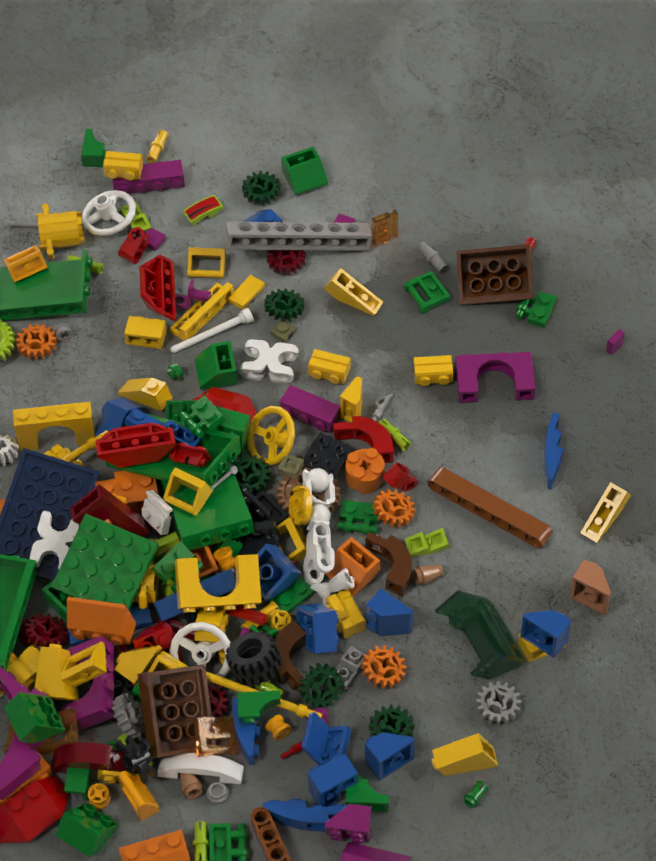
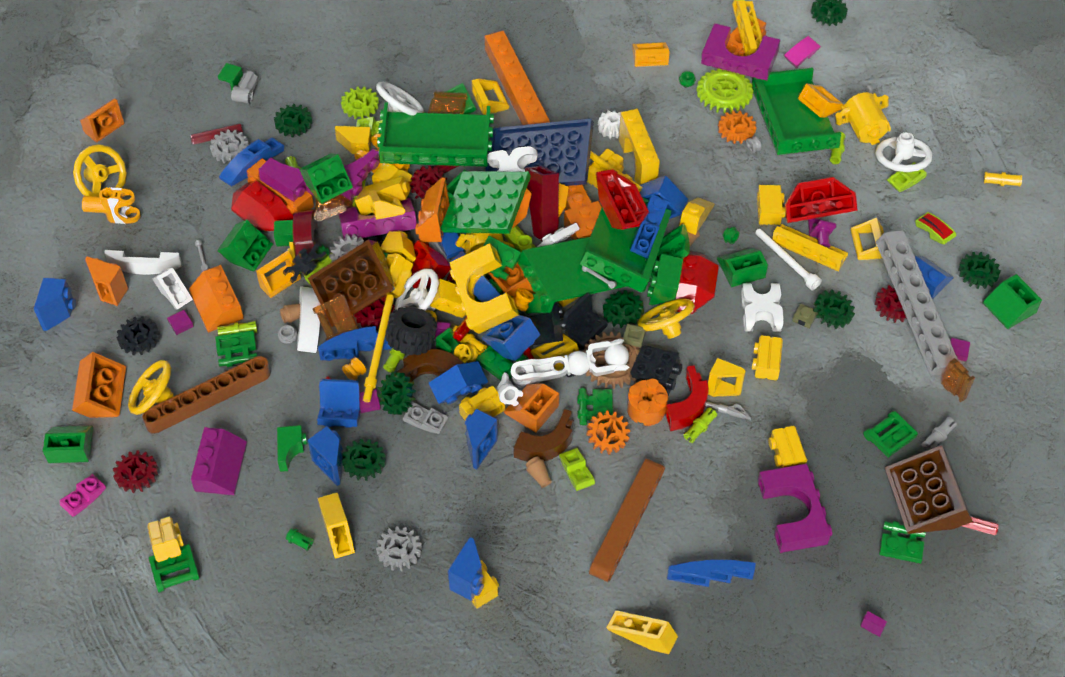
camera: 80 degrees right, 0 degrees up
(93, 151) = (976, 128): green arch -> none
(99, 791) = (275, 245): light orange wheel -> none
(123, 165) = (956, 147): yellow brick -> none
(133, 246) = (868, 178): red piece -> none
(153, 178) = (959, 177): magenta brick -> none
(156, 239) = (886, 195): magenta tile -> none
(180, 477) = (581, 239): yellow tile -> none
(197, 455) = (619, 247): red hinge -> none
(206, 412) = (663, 250): green plate -> none
(246, 292) = (844, 279): yellow tile -> none
(253, 704) = (361, 337): green arch -> none
(297, 816) = (266, 400): blue slope -> none
(300, 505) = (583, 343): yellow tile -> none
(310, 409) = (712, 345): magenta brick -> none
(330, 779) = (294, 409): blue brick -> none
(350, 823) = (250, 432): magenta slope -> none
(351, 292) = (866, 367): yellow slope -> none
(385, 676) = (418, 441): orange gear -> none
(400, 478) = (643, 431): red piece -> none
(485, 632) = (488, 528): clear green windscreen -> none
(591, 587) = (541, 618): nougat slope -> none

